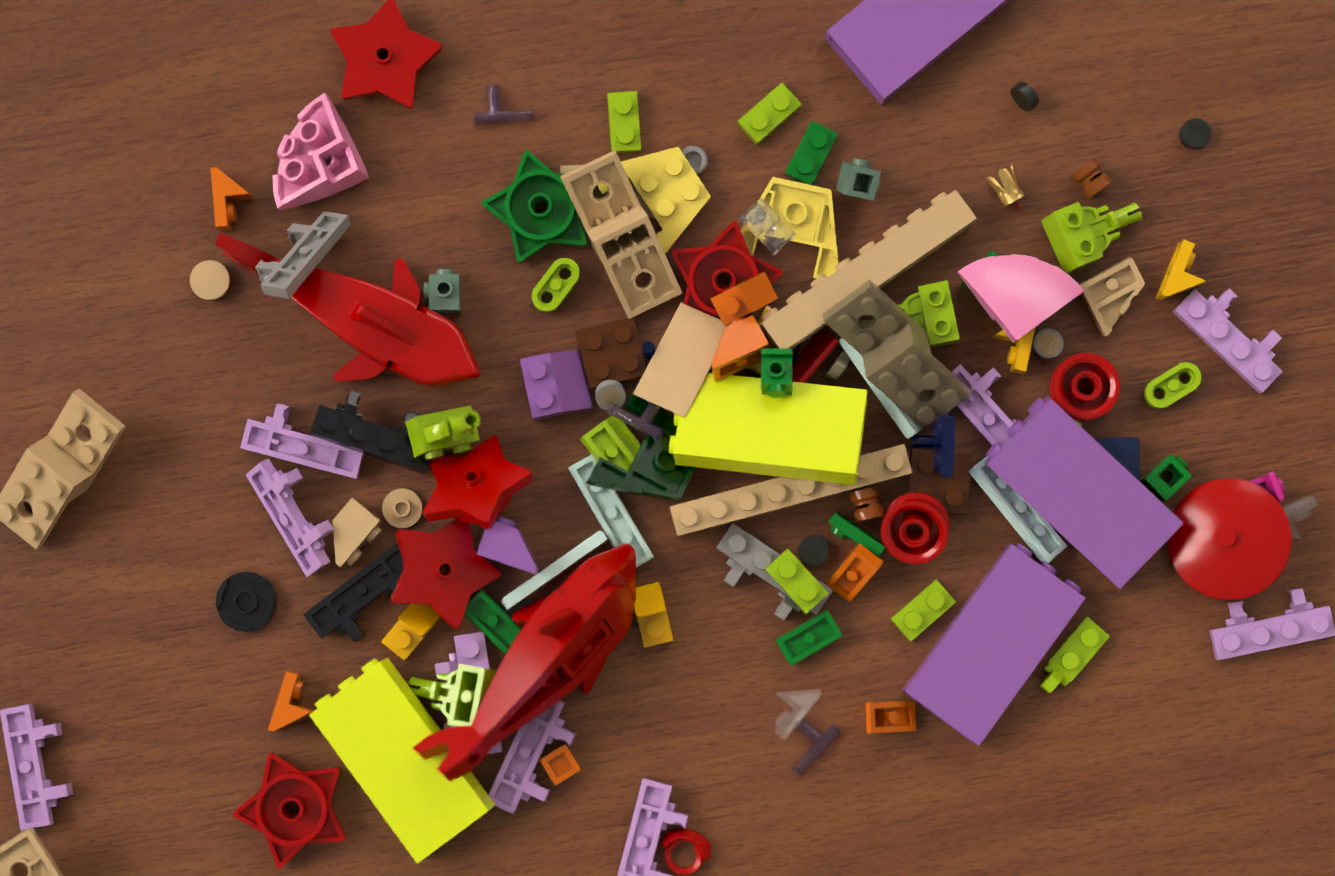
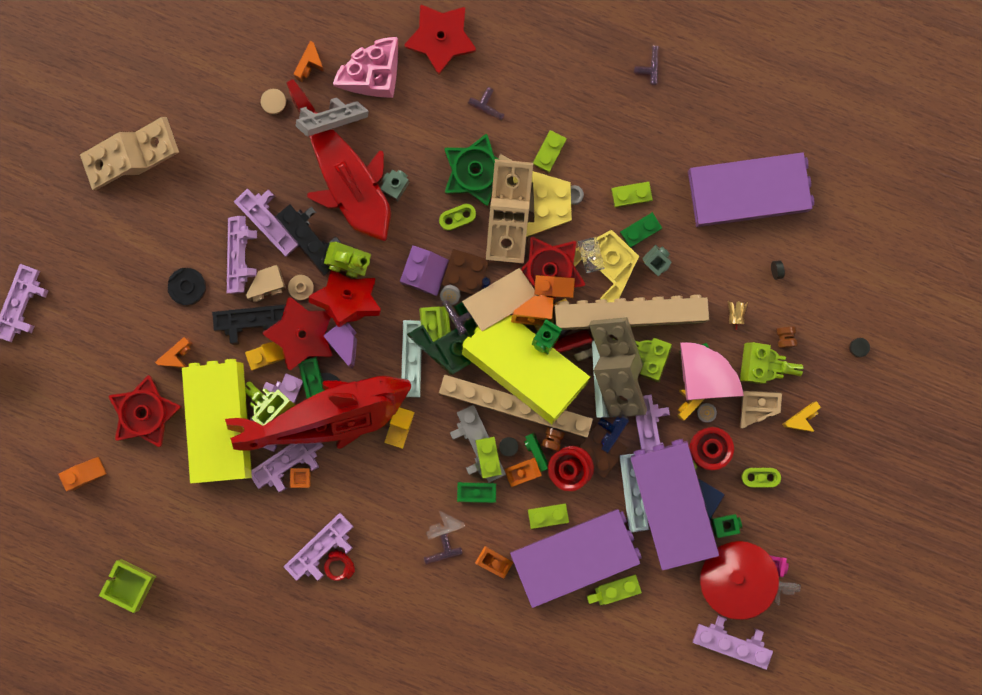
camera: 35 degrees right, 0 degrees up
(554, 570) = (362, 370): light aqua tile -> none
(1246, 357) = (812, 487): lavender hinge -> none

